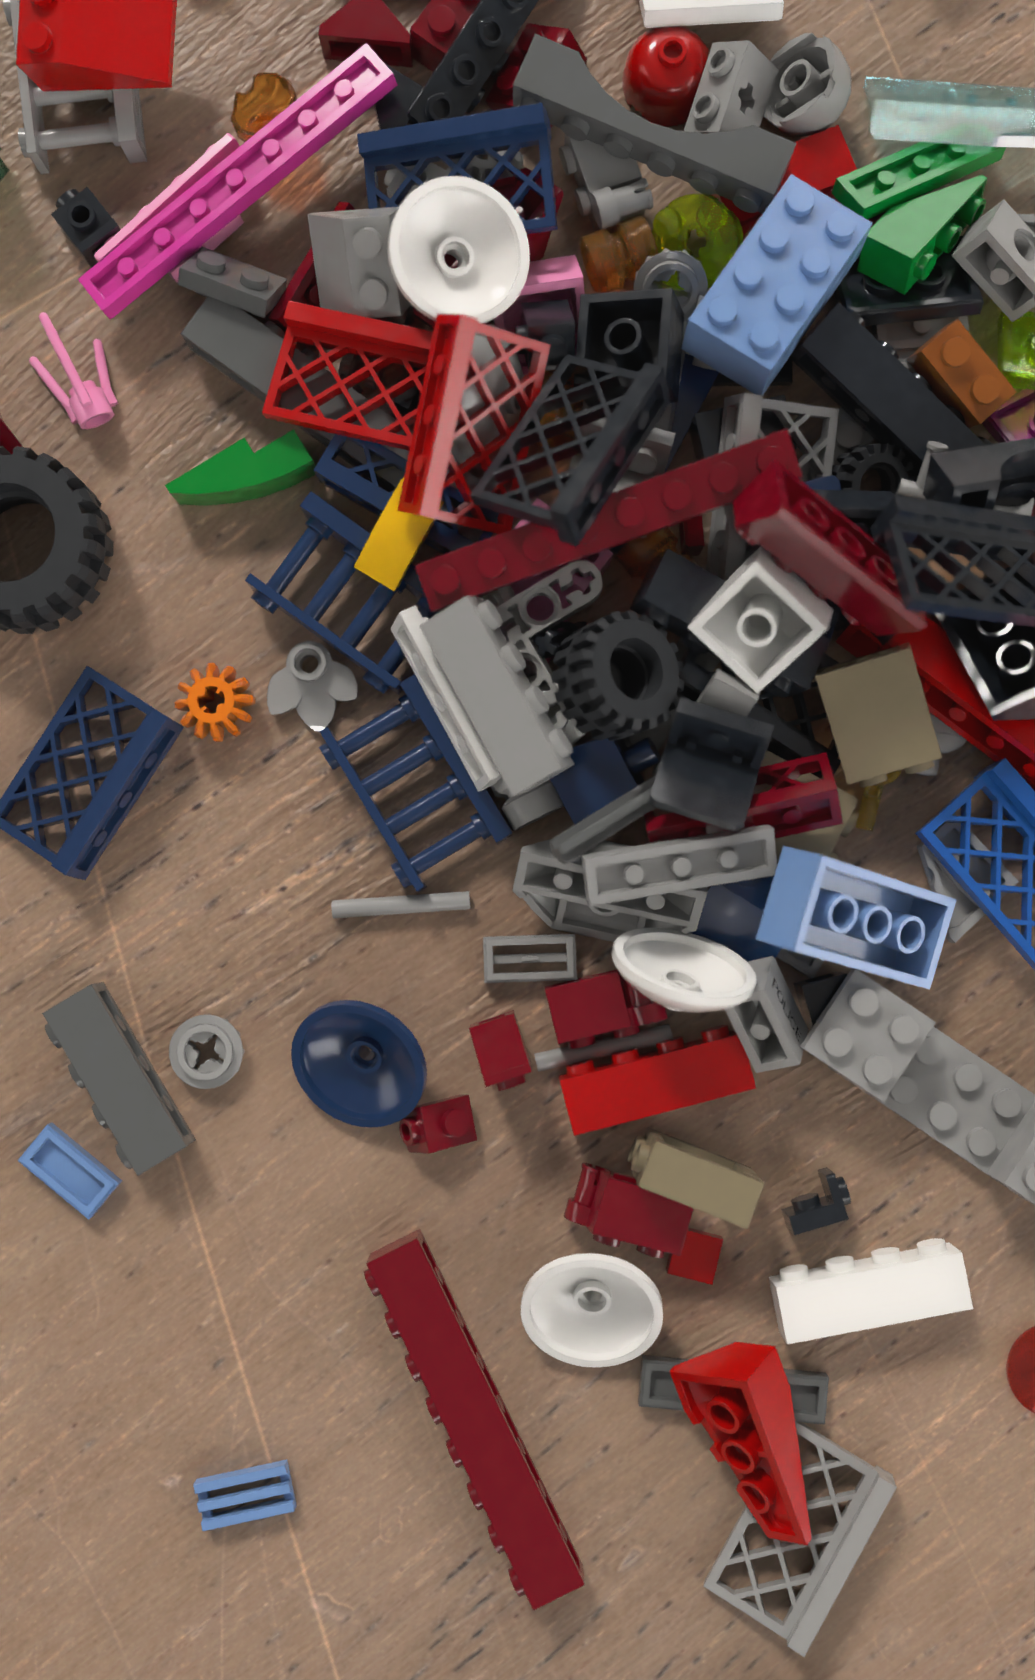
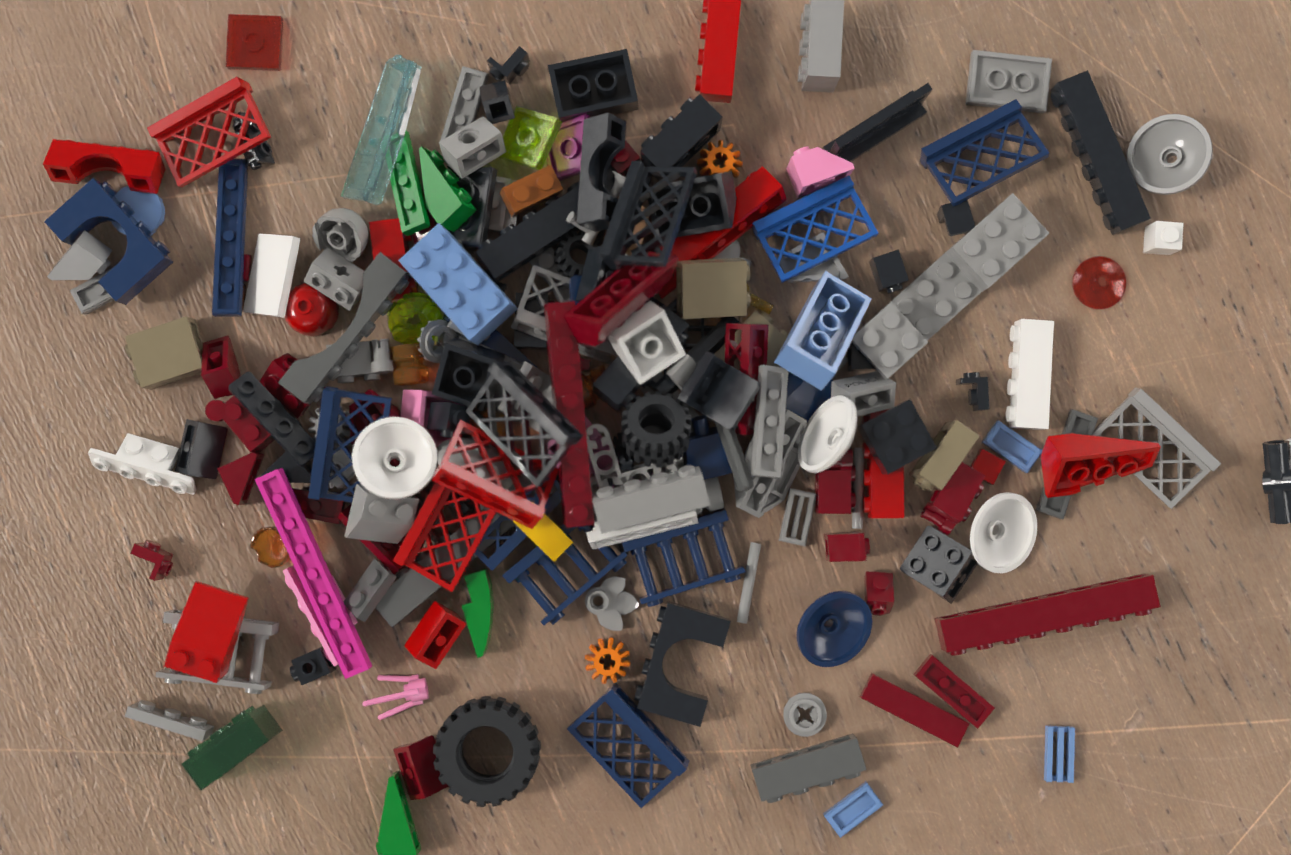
camera: 70 degrees left, 0 degrees up
(182, 798) = (657, 693): none -> black arch
(185, 408) = (435, 634): none -> red brick
(258, 1233) = (914, 710): none -> dark red tile
(305, 1291) = (954, 691): none -> dark red plate
(346, 167) = (322, 509): none -> dark red plate
(512, 1215) = (939, 563): none -> bracket
(709, 1088) = (896, 437): none -> black brick
(738, 1289) = (1012, 446): none -> medium blue tile
(980, 1009) = (889, 272): none -> black brick

